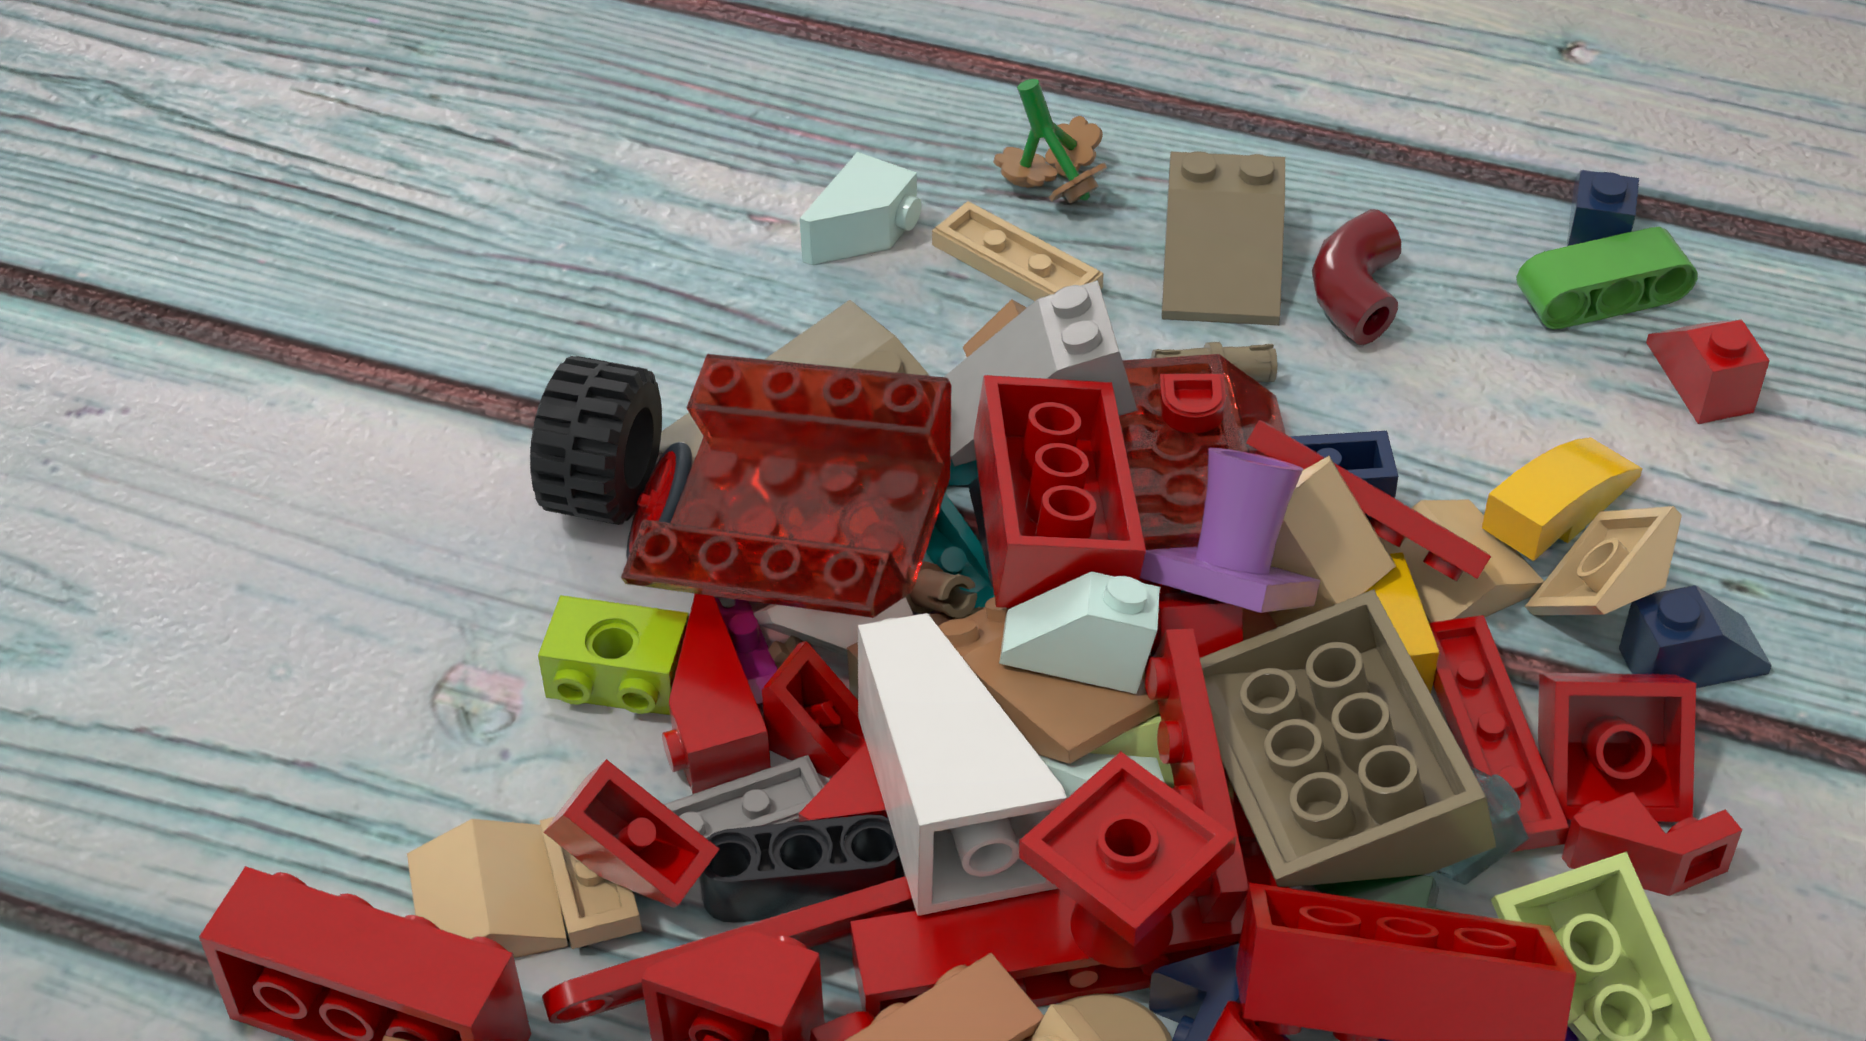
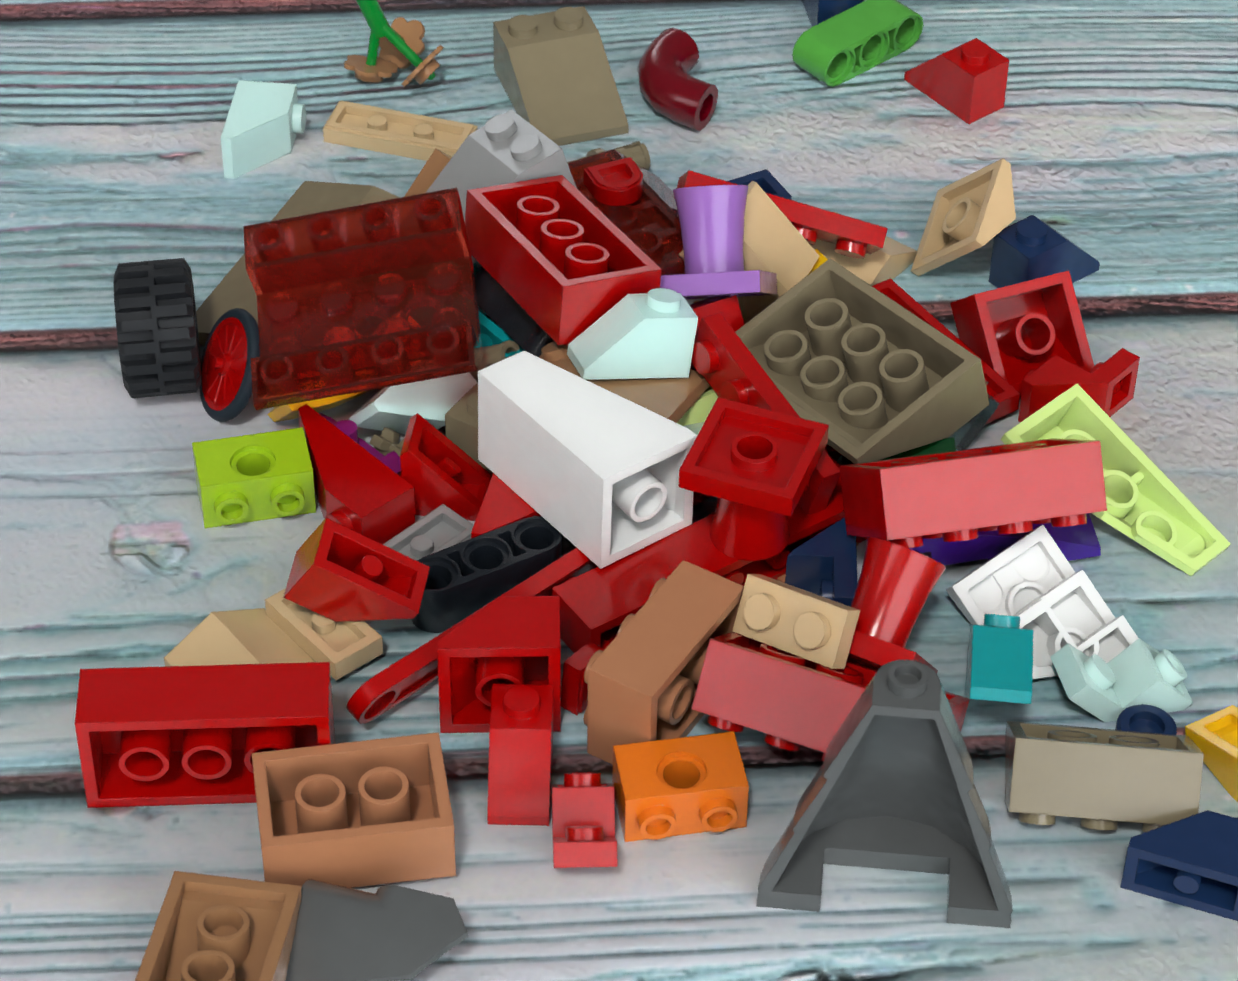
camera: 25 degrees left, 5 degrees down
(1557, 495) = (899, 190): yellow slope -> none

